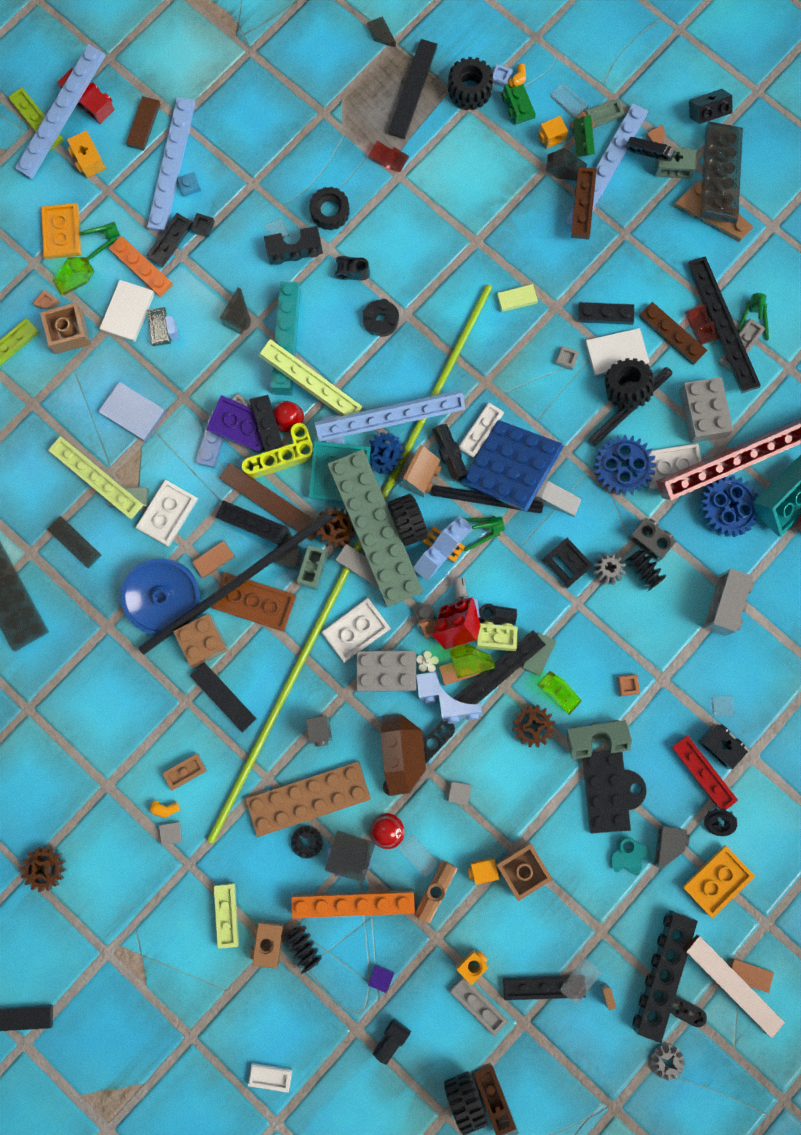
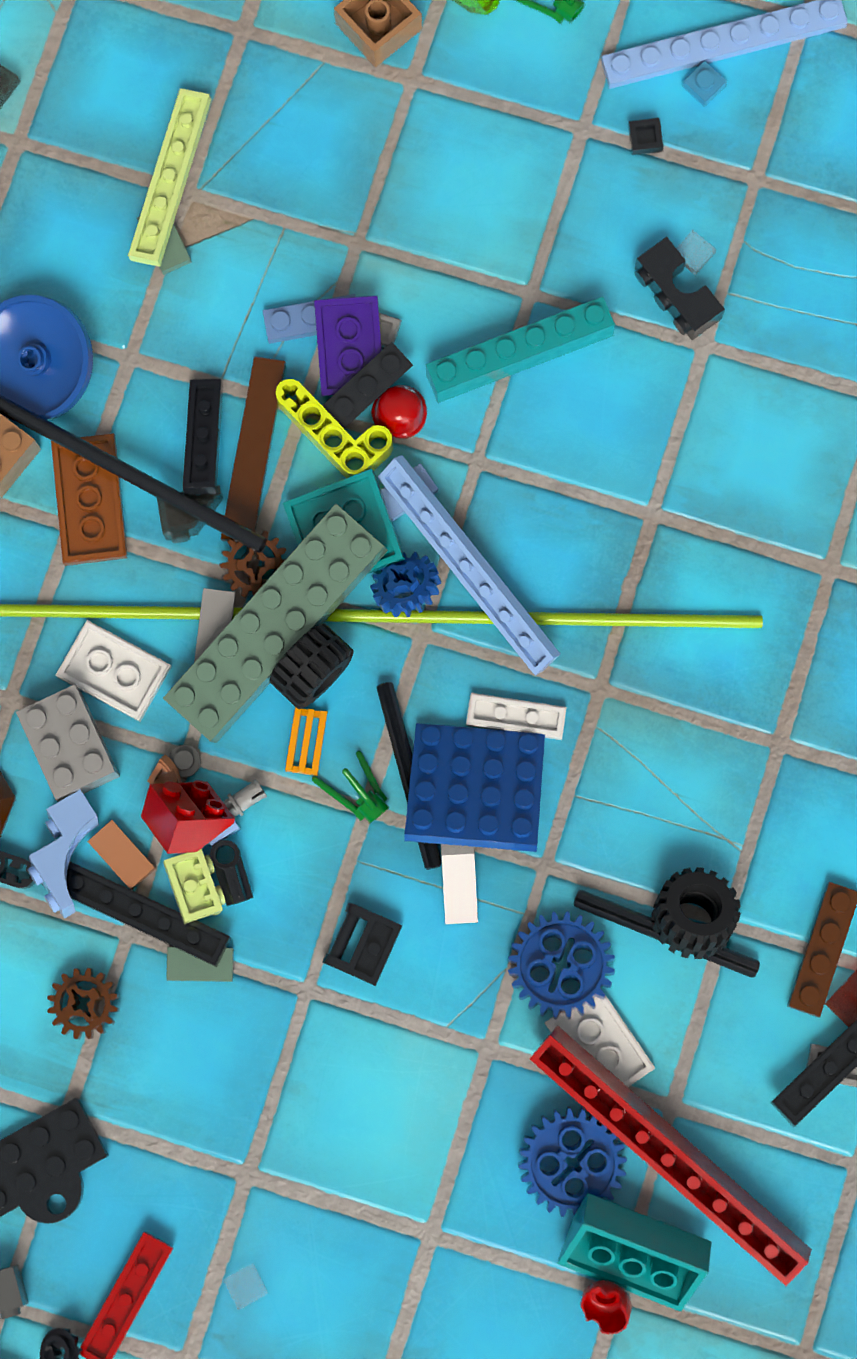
camera: 65 degrees right, 0 degrees up
(74, 542) = (61, 195): clear smoke plate -> none
(127, 311) = (453, 93): white tile -> none
(132, 411) = (298, 179): tile -> none
(140, 266) = (534, 78): orange plate -> none
(158, 326) = (451, 152): clear smoke tile -> none
(166, 513) = (166, 307): white tile -> none
(169, 240) = (596, 99): black plate -> none
(172, 328) = (455, 172): light blue tile -> none
(213, 559) = (126, 409): nougat tile -> none
(236, 313) = (527, 257): clear smoke slope -> none
(308, 379) = (463, 416): yellowish green plate -> none
(312, 567) = (175, 560): sand green brick -> none
(322, 196) = (775, 291): black tyre -> none
(350, 268) = (681, 391): black piece -> none
(385, 308) = (623, 460): black plate -> none
(421, 472) = (400, 654): medium nougat slope -> none
(427, 662) = (112, 799): white plant -> none
(442, 548) = (297, 741): light blue arch -> none
(449, 452) = (455, 683): black piece -> none
(469, 660) = (137, 860): clear neon green slope -> none
(517, 298) = (763, 675): yellowish green tile -> none
(559, 692) = (152, 1020): clear neon green slope -> none
(567, 358) = (700, 798): light grey tile -> none
(606, 313) = (805, 827): black plate -> none
(611, 563) = (393, 1013): light grey gear -> none
(614, 734) = (96, 1086): sand green arch -> none
(615, 347) = (753, 871): white tile -> none
(628, 685) = (213, 1124): nougat tile -> none
(645, 568) = (407, 1070): black piece -> none
(650, 542) = (452, 1059): dark grey brick -> none
(706, 410) = (714, 1056): light grey brick -> none
(712, 743) = (166, 1326): black brick -> none
(729, 602) = (407, 1224): light grey brick -> none

